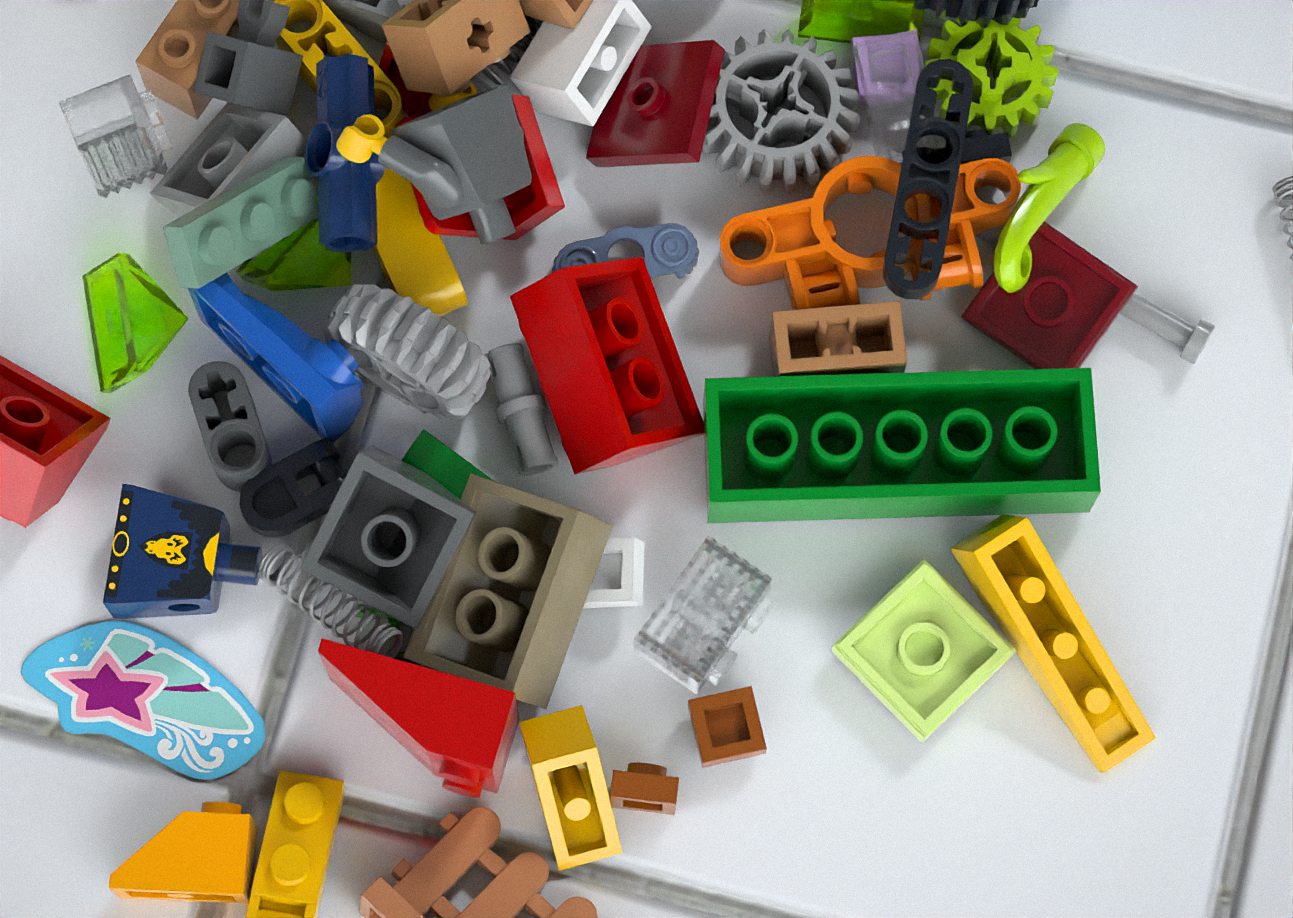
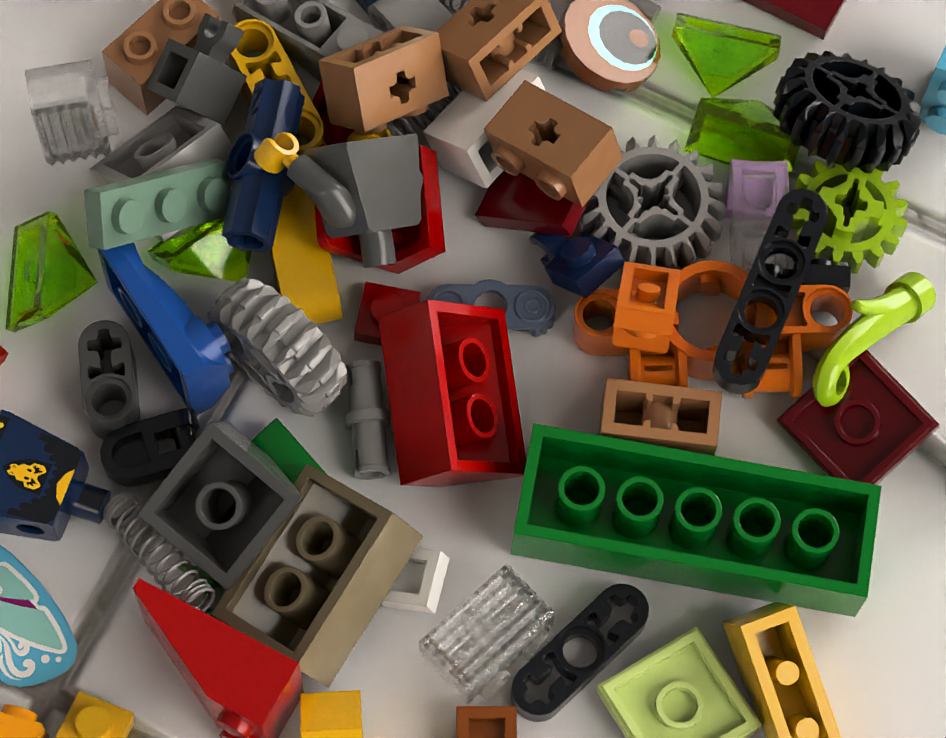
camera: 10 degrees right, 5 degrees down
(505, 277) = (378, 301): none -> red plate
(658, 65) = (552, 144): none -> medium nougat brick
(714, 190) = (578, 263): none -> dark blue plate
(798, 224) = (645, 307): none -> orange slope
(816, 565) = (599, 611): none -> black beam

